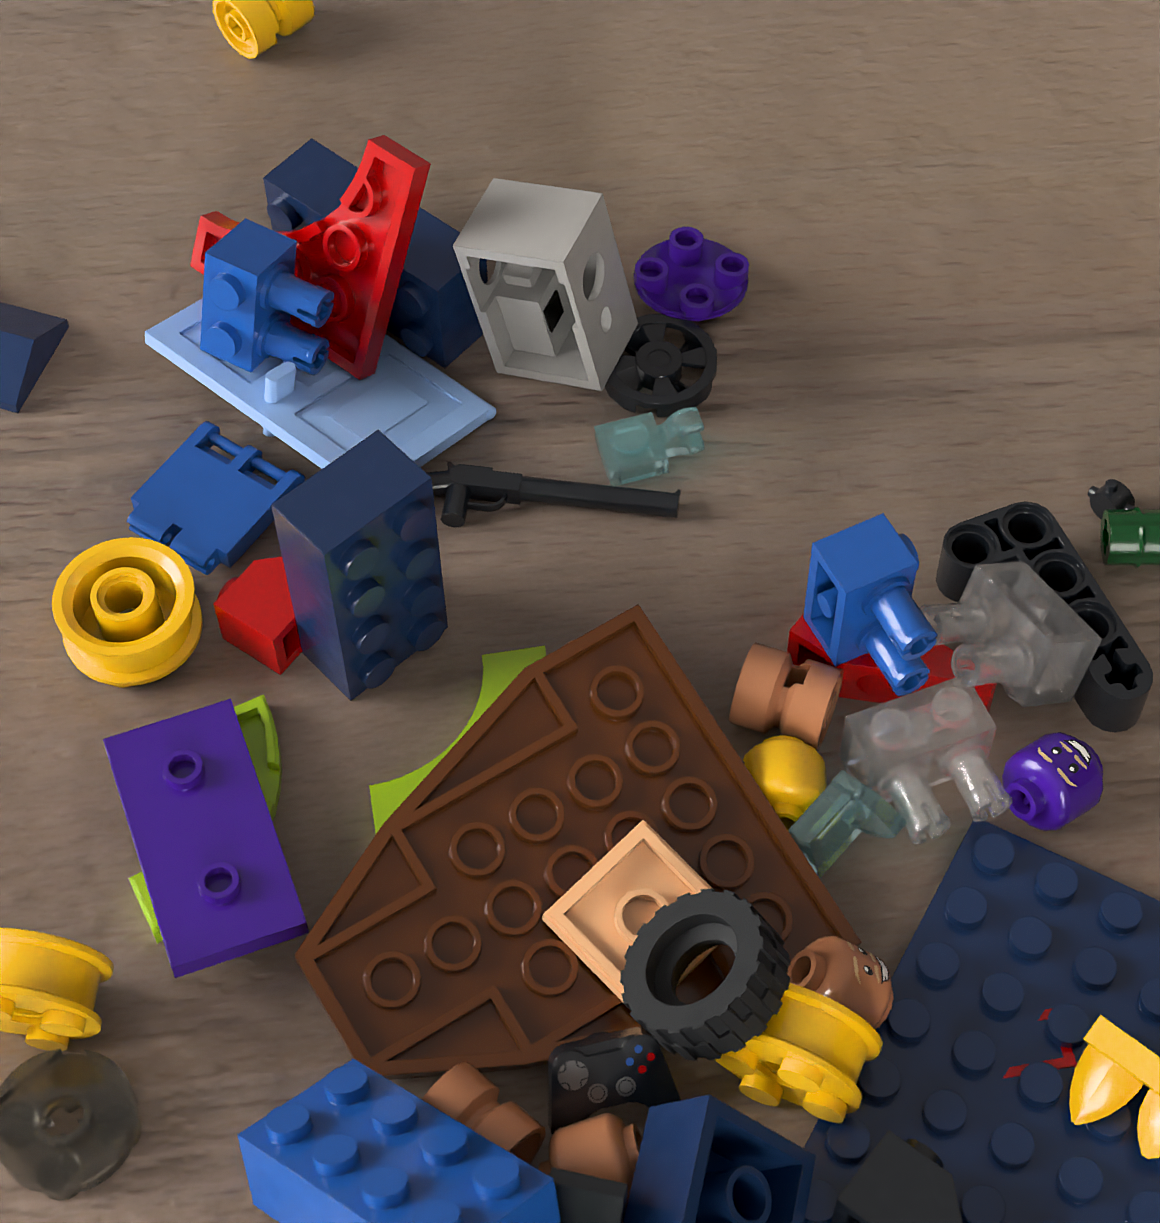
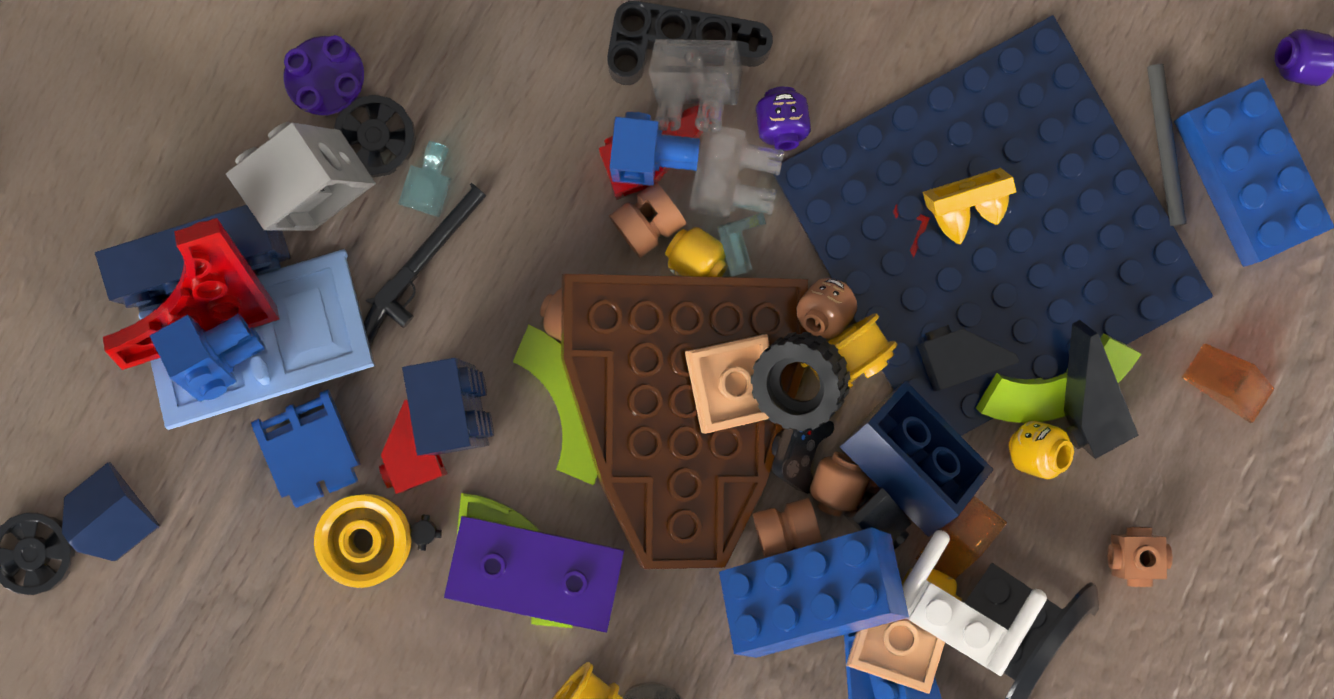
camera: 60 degrees left, 30 degrees up
(182, 685) = (424, 532): none -> black piece

